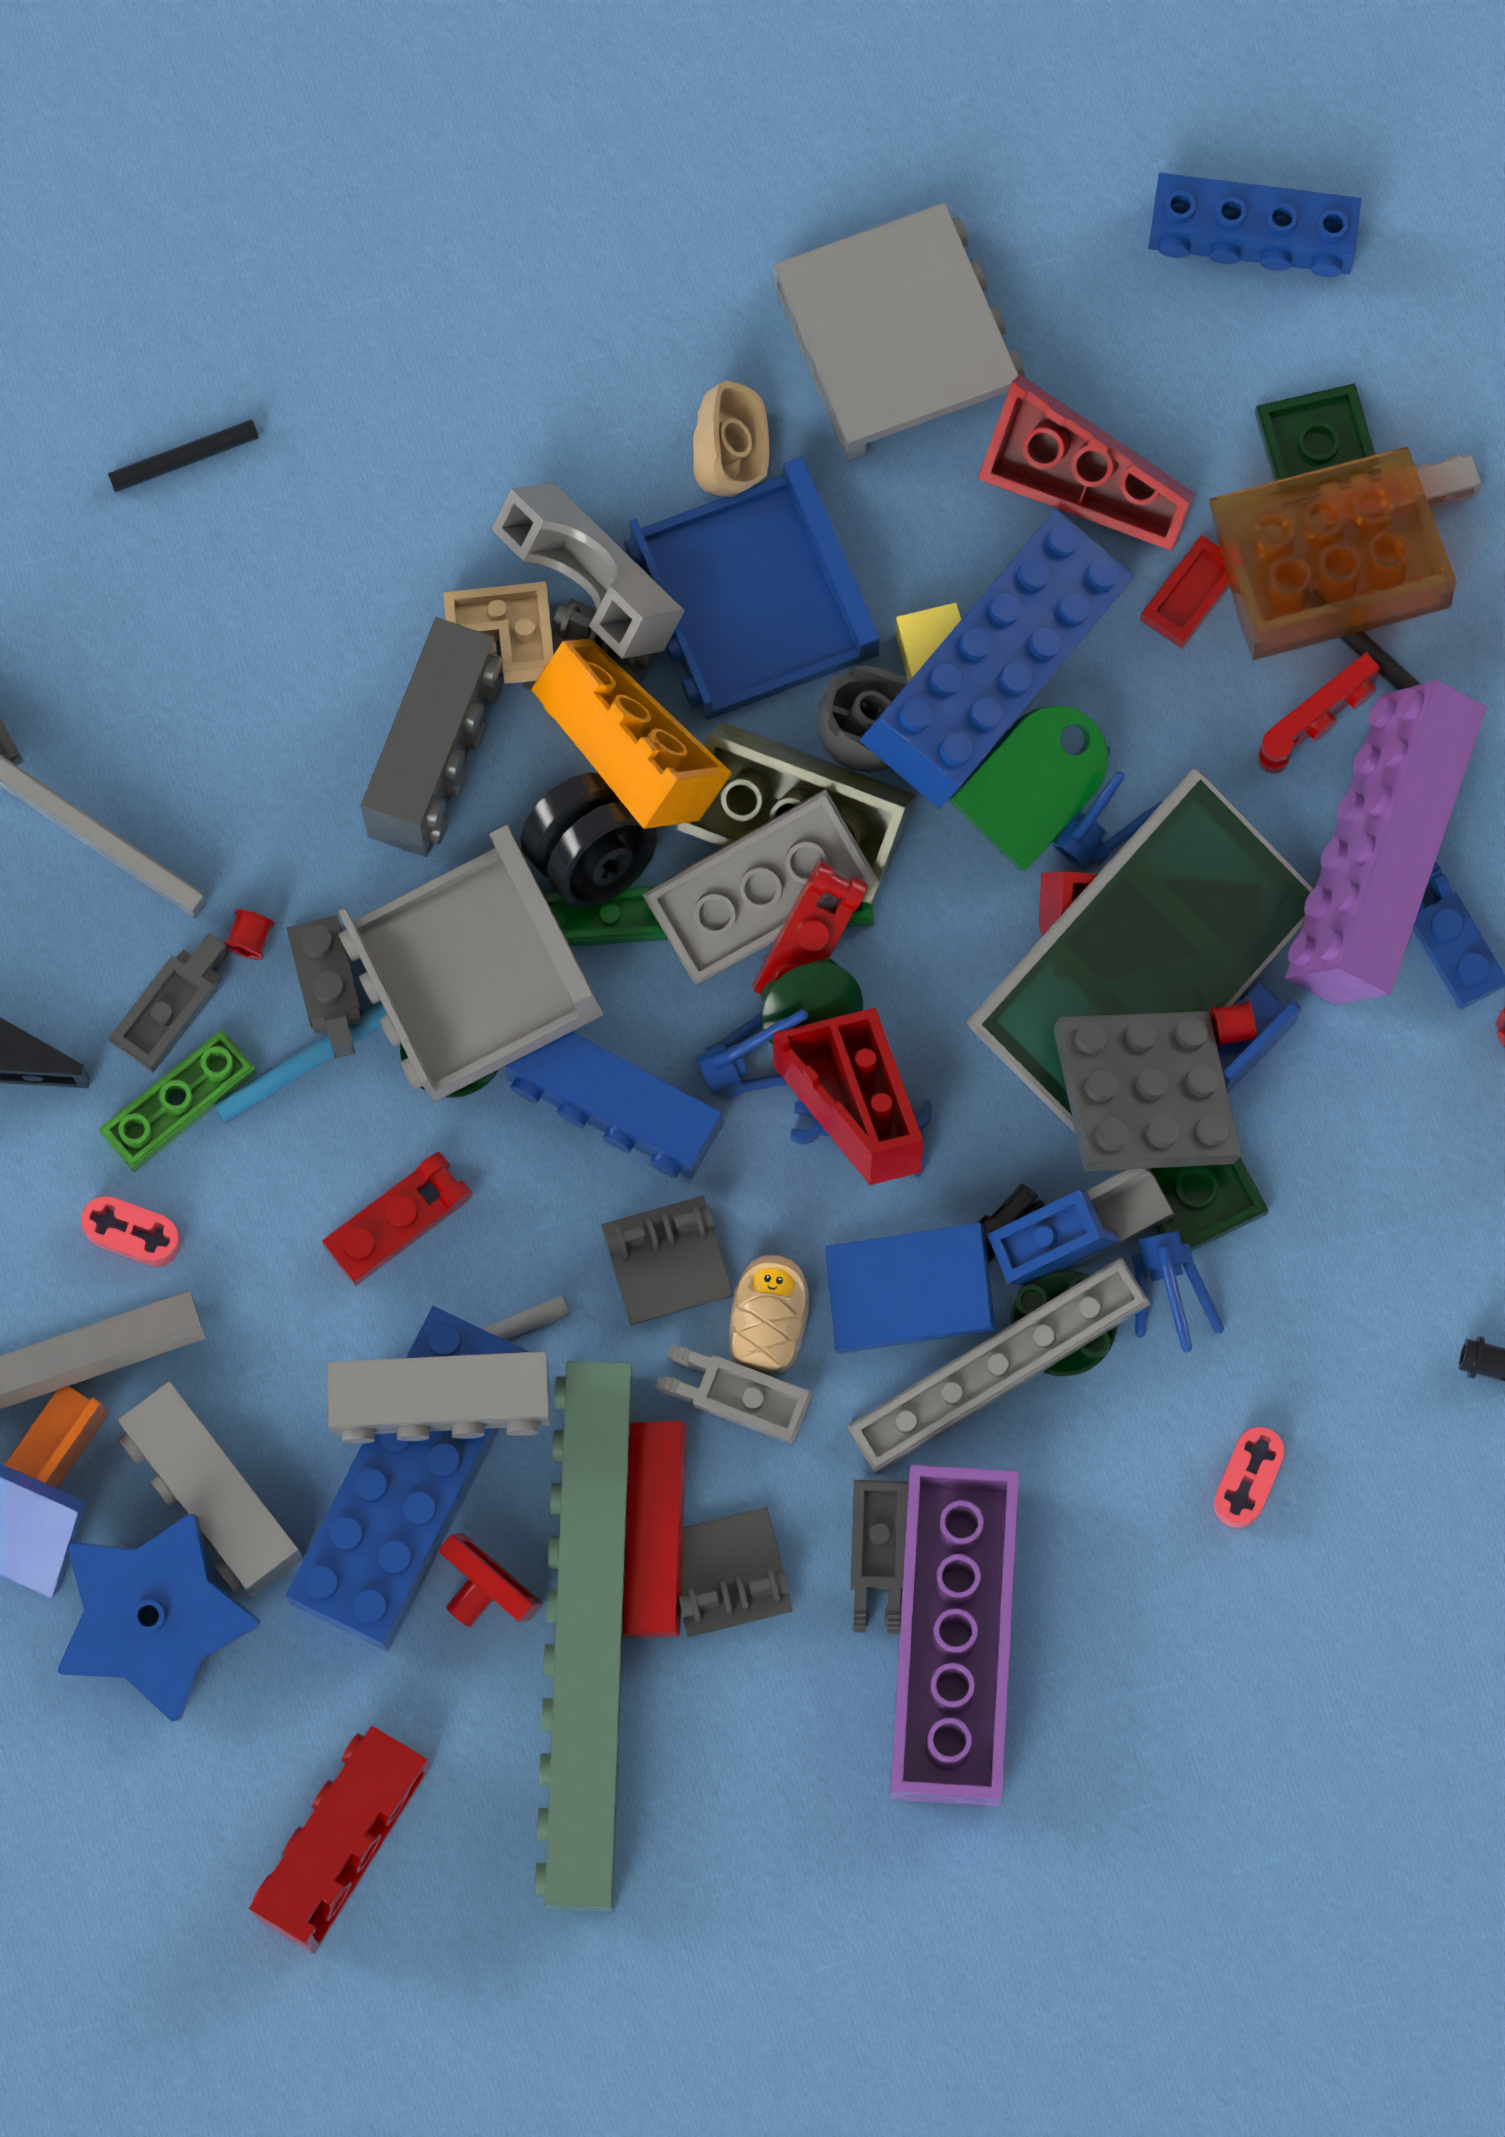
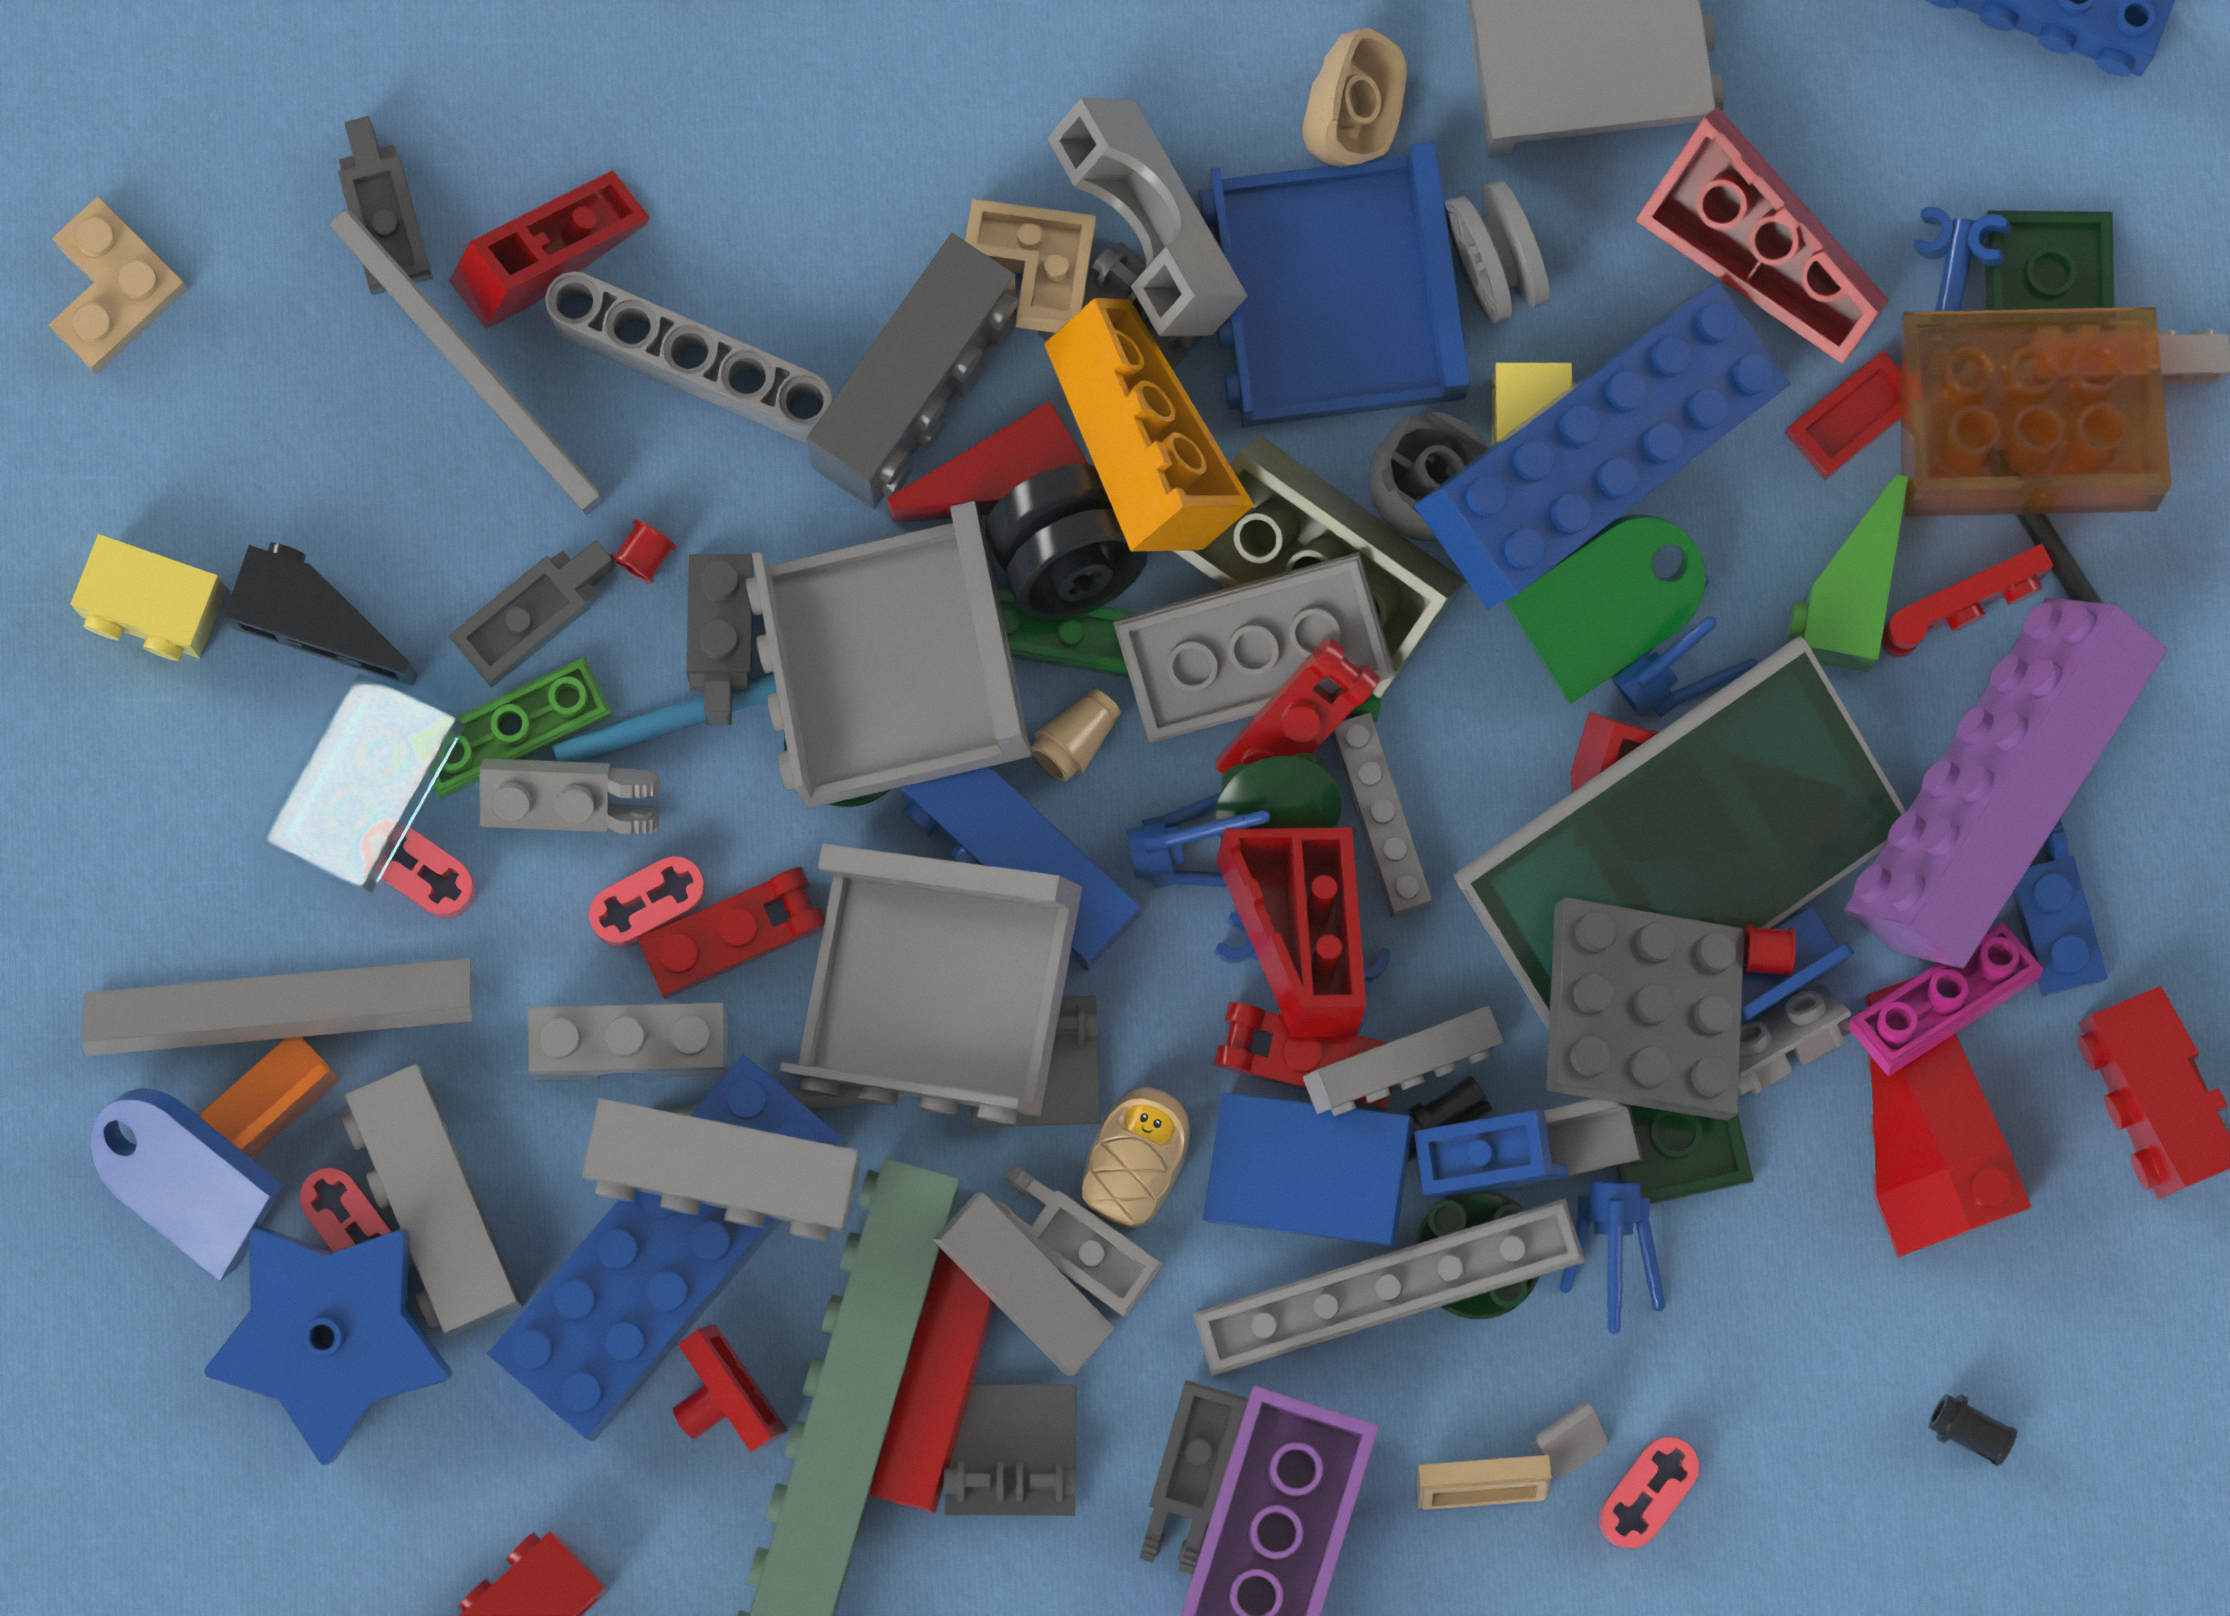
camera: 10 degrees right, 5 degrees up
(70, 1171) = (365, 783): none -> clear light blue tile
(108, 714) = (523, 257): none -> red slope
(144, 1506) = (354, 1200): none -> coral beam
(229, 755) = (669, 335): none -> light grey beam
(234, 1143) = (565, 796): none -> light grey hinge
(313, 1201) = (640, 887): none -> coral beam
(361, 1313) = (627, 1039): none -> light grey arch
(508, 800) = (989, 468): none -> red slope
(573, 1211) = (937, 983): none -> light grey panel
(633, 995) = (1073, 737): none -> tan cone
(705, 1435) = (1024, 1284): none -> light grey tile
(874, 529) = (1497, 251): none -> light grey wheel
(896, 997) = (1381, 815): none -> light grey piece
(897, 1204) = (1288, 1056): none -> red plate
(964, 1183) = (1403, 1062): none -> light grey piece
(1114, 1500) = (1483, 1482): none -> tan tile
(1175, 1451) = (1571, 1440): none -> light grey slope
(1226, 732) = (1849, 600): none -> bright green slope
(1238, 437) = (1958, 242): none -> blue bar
(1280, 1076) = (1808, 1023): none -> light grey hinge
(1370, 1046) = (1921, 1018): none -> dark pink tile
(1404, 1138) = (1938, 1149): none -> red wedge

